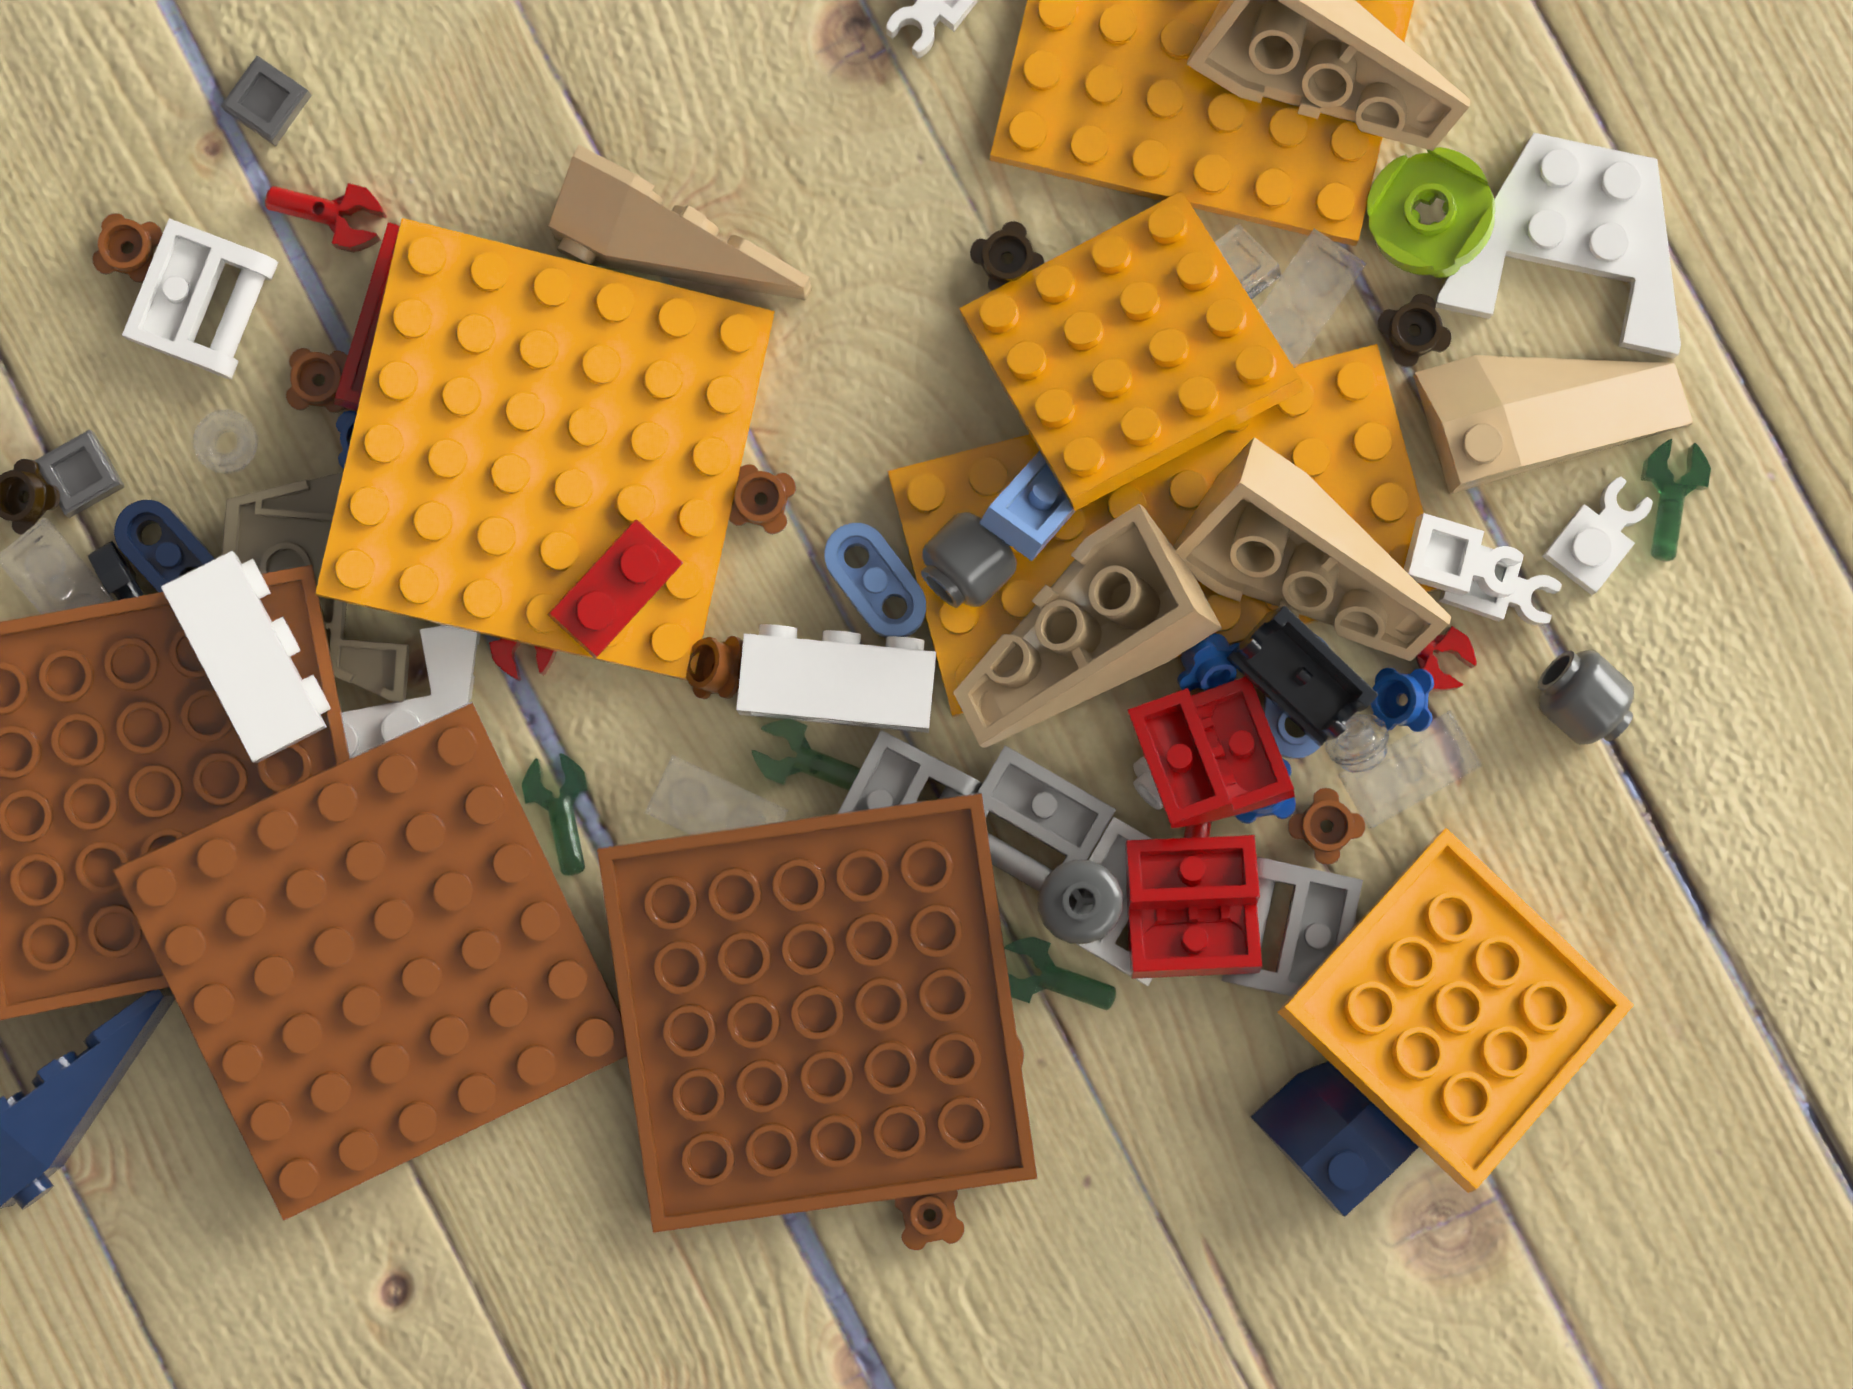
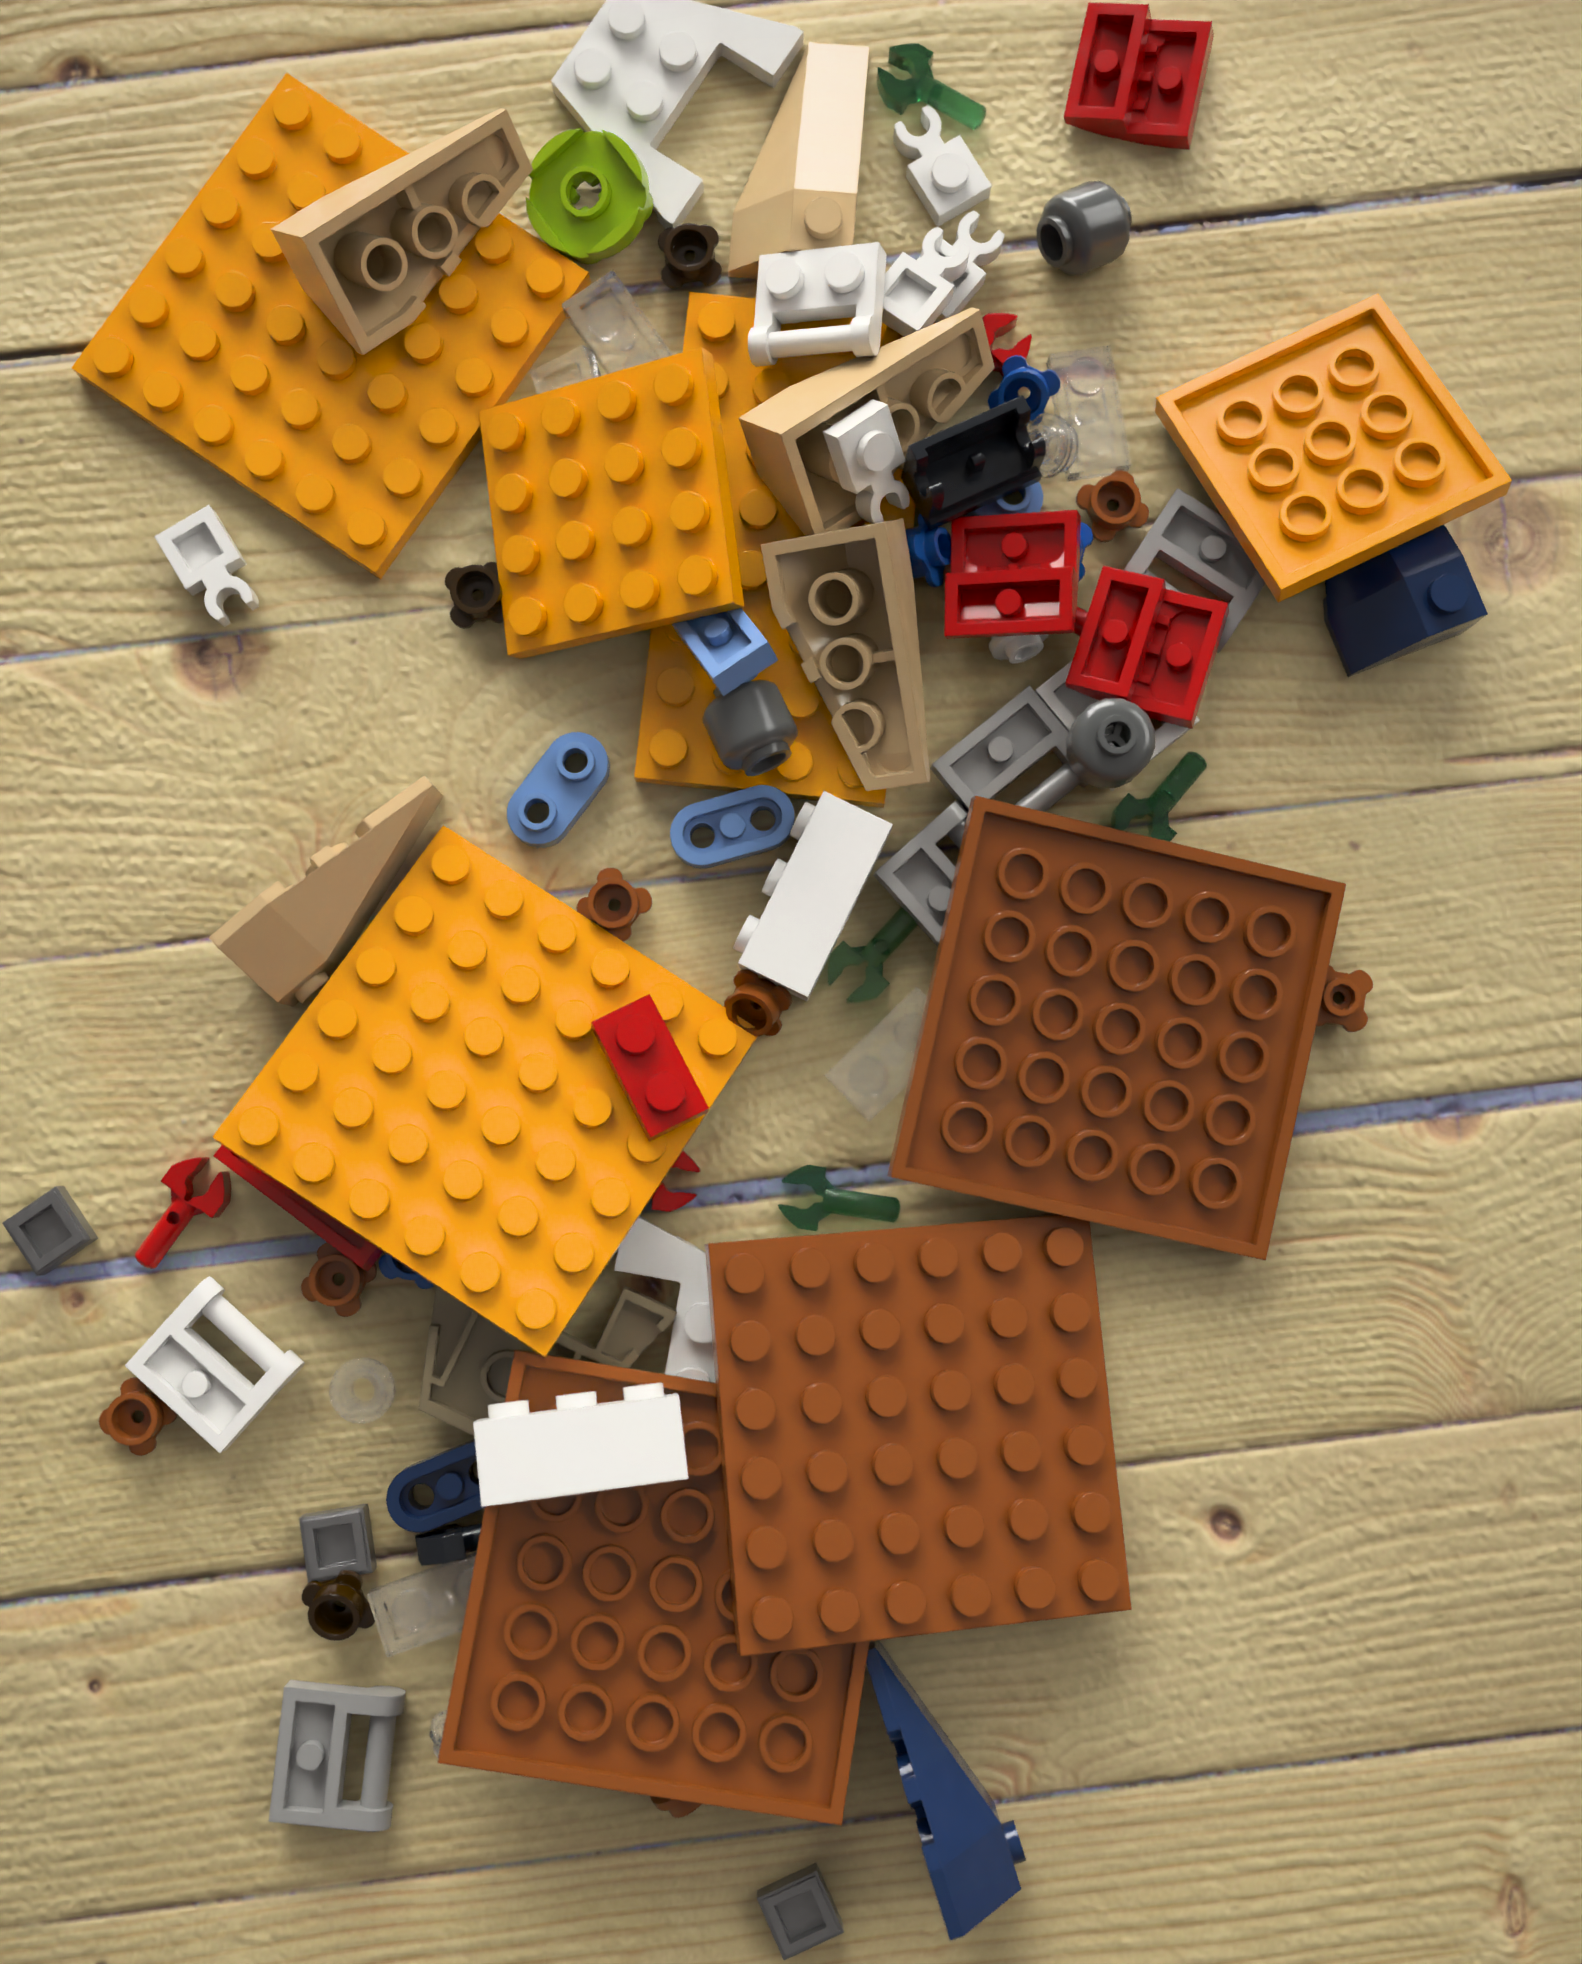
camera: 70 degrees left, 0 degrees up
(849, 406) = (561, 790): none -> medium blue plate
(1262, 569) = (864, 454): none -> white plate
(1415, 462) = (816, 288): none -> white plate
(1767, 694) = (1138, 75): none -> red slope

